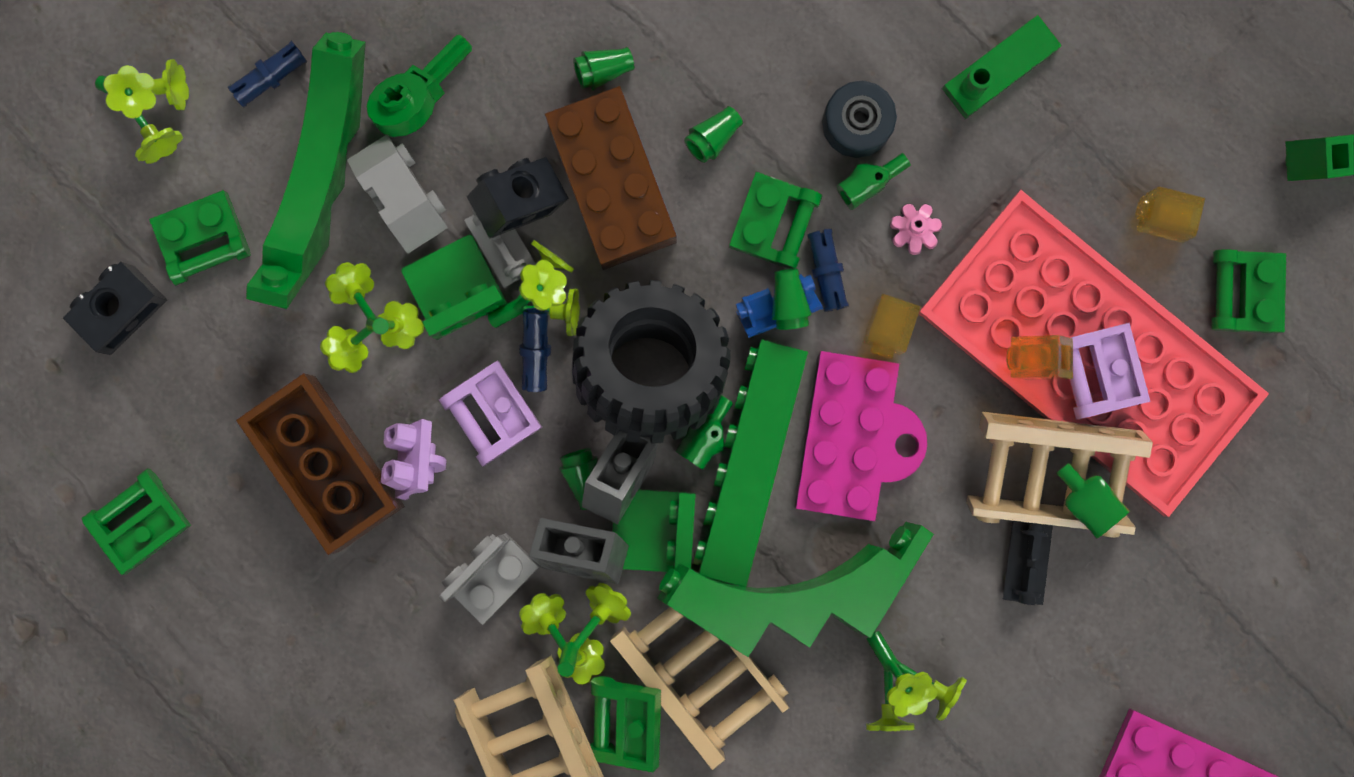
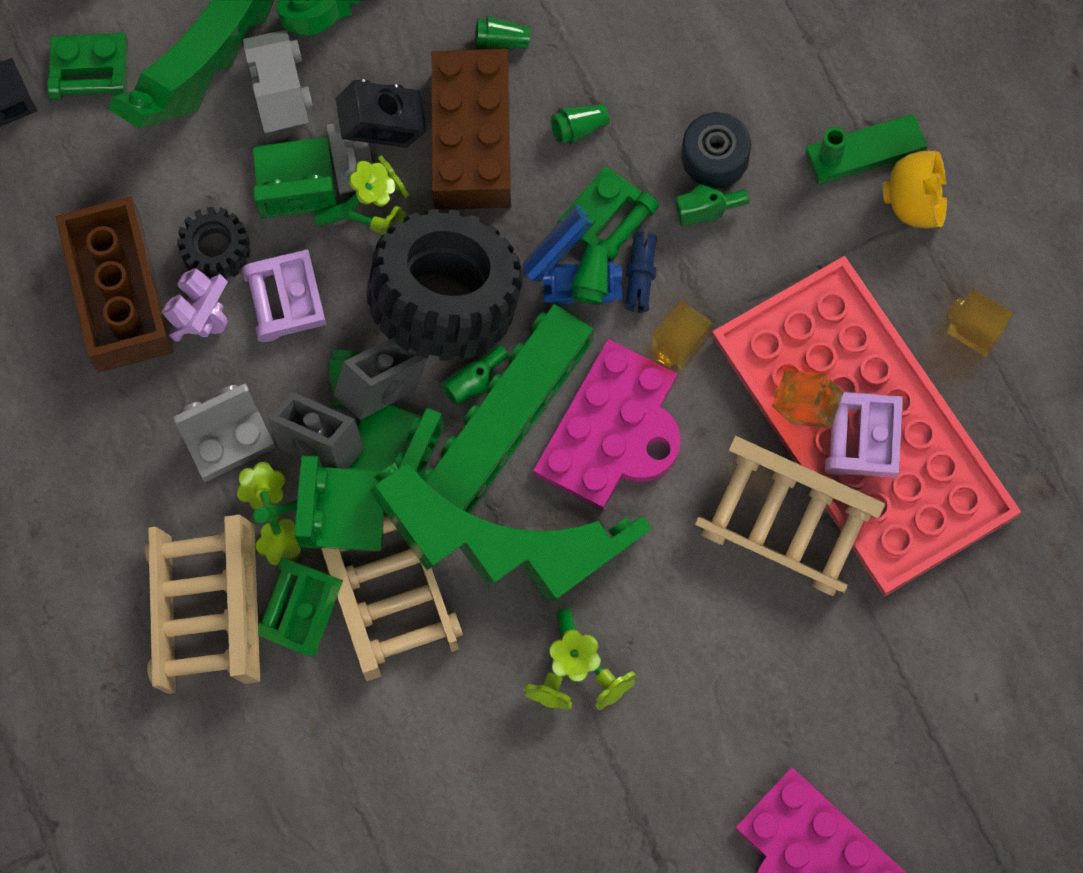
camera: 25 degrees right, 15 degrees down
(377, 385) = (208, 224): none -> black tyre
(396, 325) = (203, 145): lime plant -> none
(535, 350) = (345, 251): dark blue pin -> none
(633, 624) = (337, 508): none -> green bracket
(743, 278) = (557, 244): none -> blue slope
(910, 233) = (737, 263): bright pink plant -> none
(1027, 562) = (737, 594): black hinge -> none
(1069, 98) = (917, 190): none -> yellow cylinder
(1092, 501) = (811, 543): green piece -> none
(1260, 291) = (1047, 421): green plate -> none

